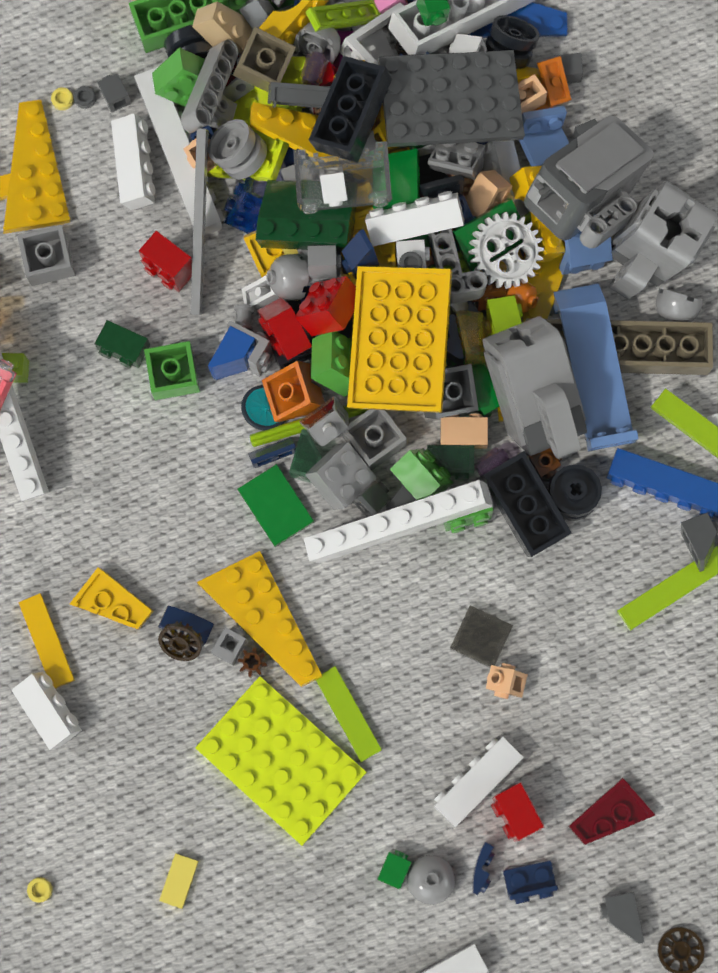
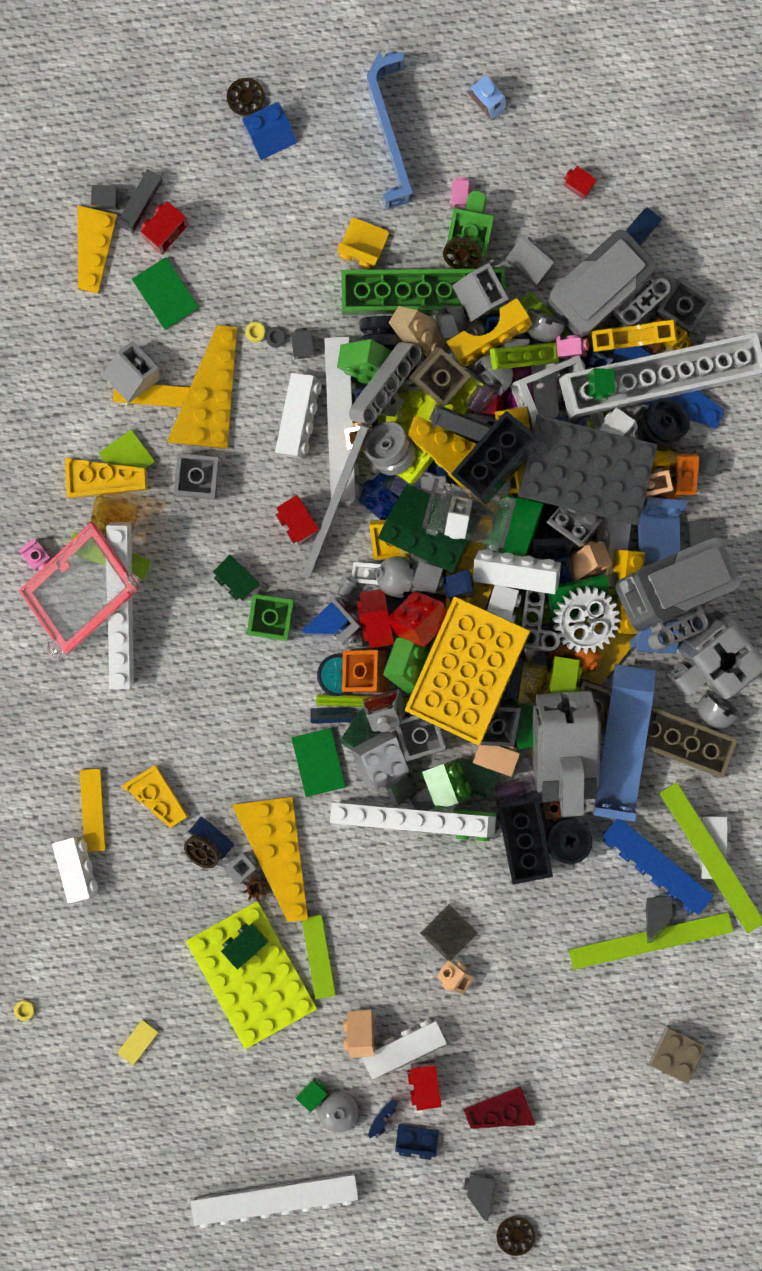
camera: 15 degrees right, 10 degrees up
(261, 726) = (244, 946): none -> dark green brick
(410, 260) = (500, 607): dark grey tile -> none
(424, 780) = (359, 1034): none -> light nougat brick

